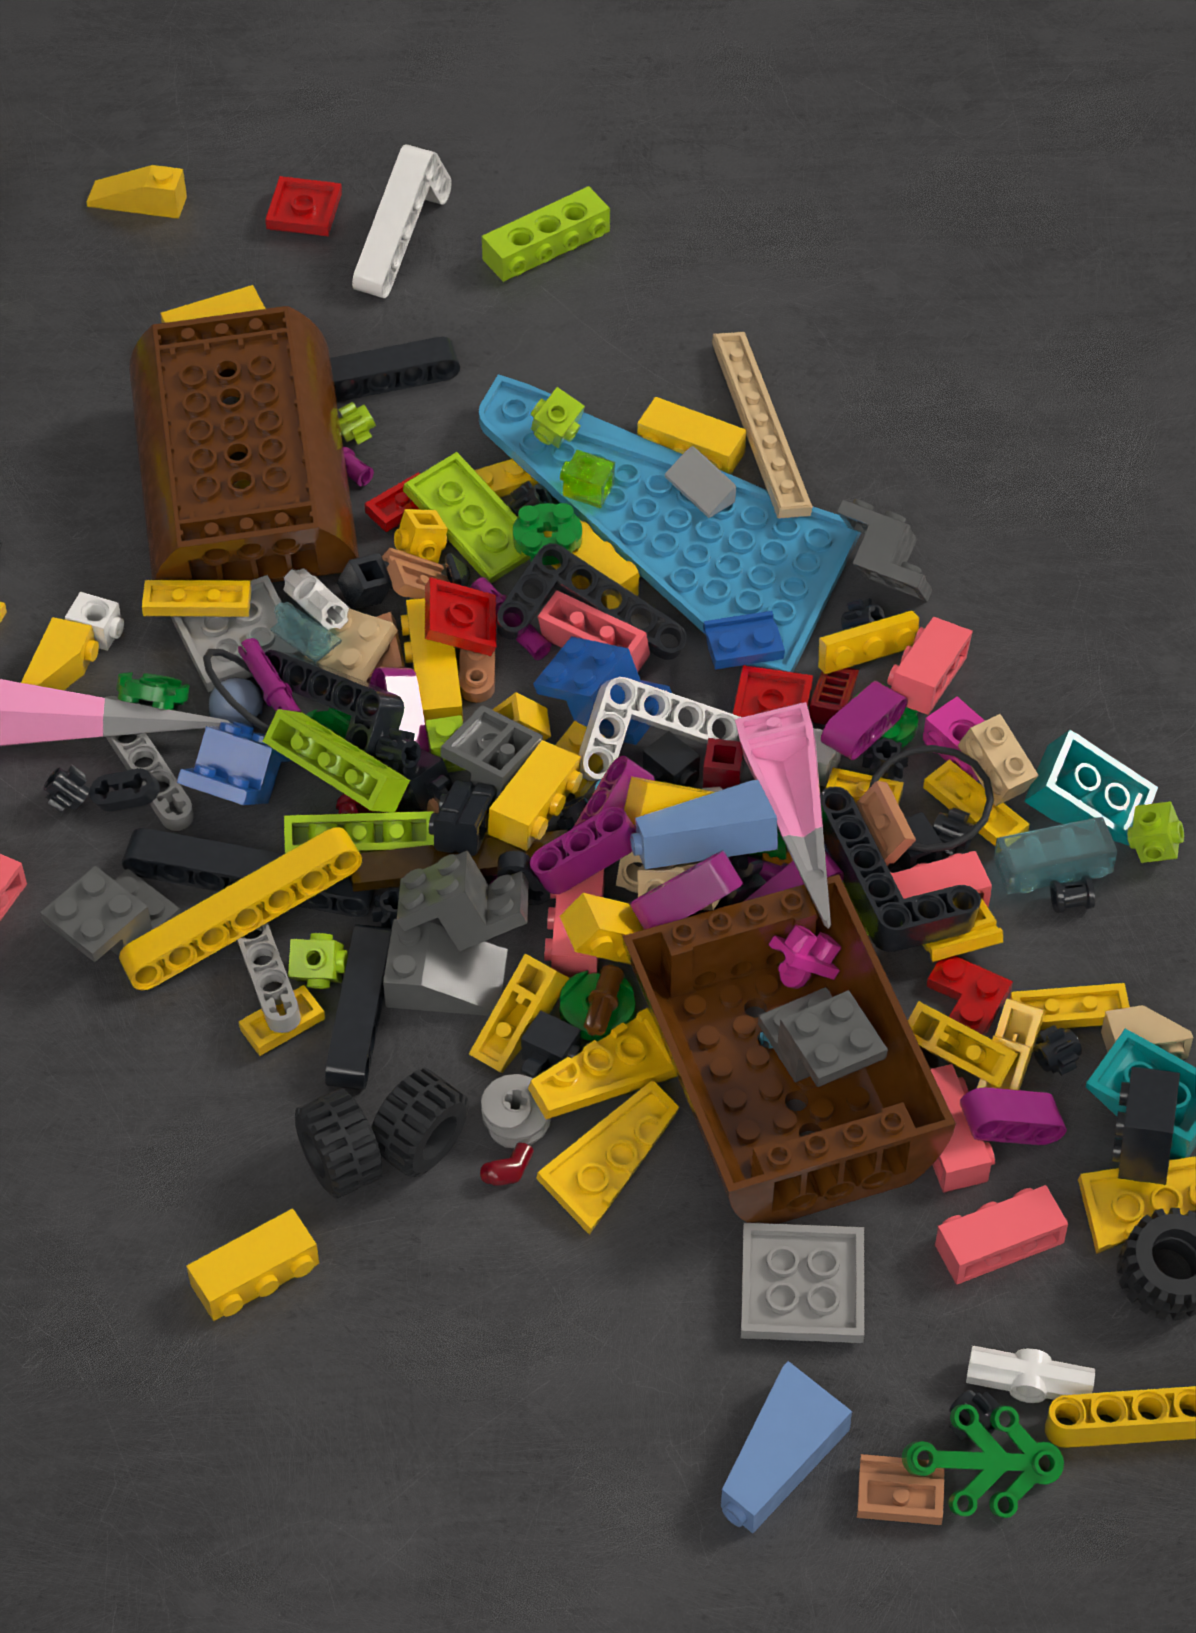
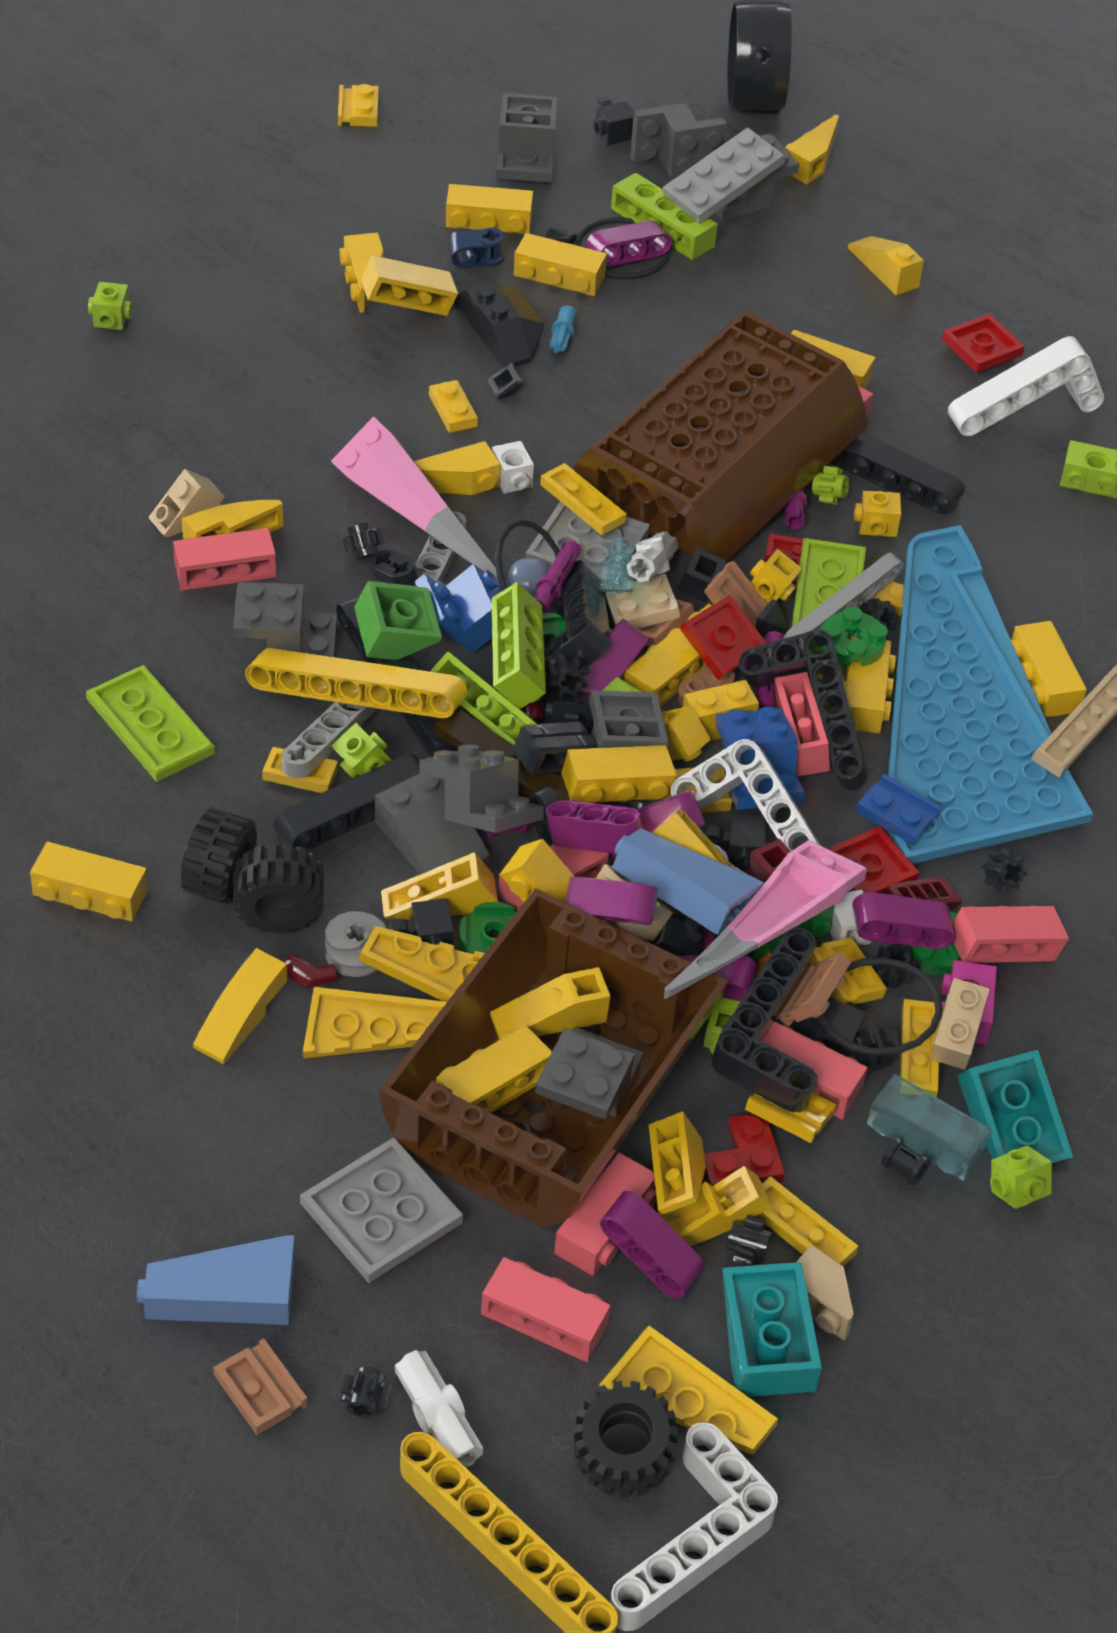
camera: 45 degrees right, 5 degrees down
(105, 1096) = (150, 723): none -> lime tile
(160, 689) = (484, 527): green plate -> none
(209, 828) = (396, 620): none -> bright green slope
(422, 416) = (878, 513): none -> yellow brick
(501, 513) = (853, 594): none -> light grey beam
(503, 1241) = (241, 1006): none -> yellow slope
(521, 670) = (718, 701): none -> yellow brick
(556, 418) = (951, 574): lime brick -> none
(587, 478) = (925, 627): clear neon green brick -> none
(603, 1000) = (483, 930): reddish brown axle -> none
(702, 482) = (1004, 694): light grey slope -> none
(732, 1015) = (565, 1002): none -> yellow slope
(760, 1099) = (499, 1071): none -> yellow brick
(805, 956) = (647, 1020): dark pink hips -> none
(867, 642) = (984, 882): yellow plate -> none
(885, 549) = (1075, 835): dark grey bracket -> none
(992, 1461) = (333, 1426): green plant -> none
(1146, 1125) = (718, 1326): black brick -> none

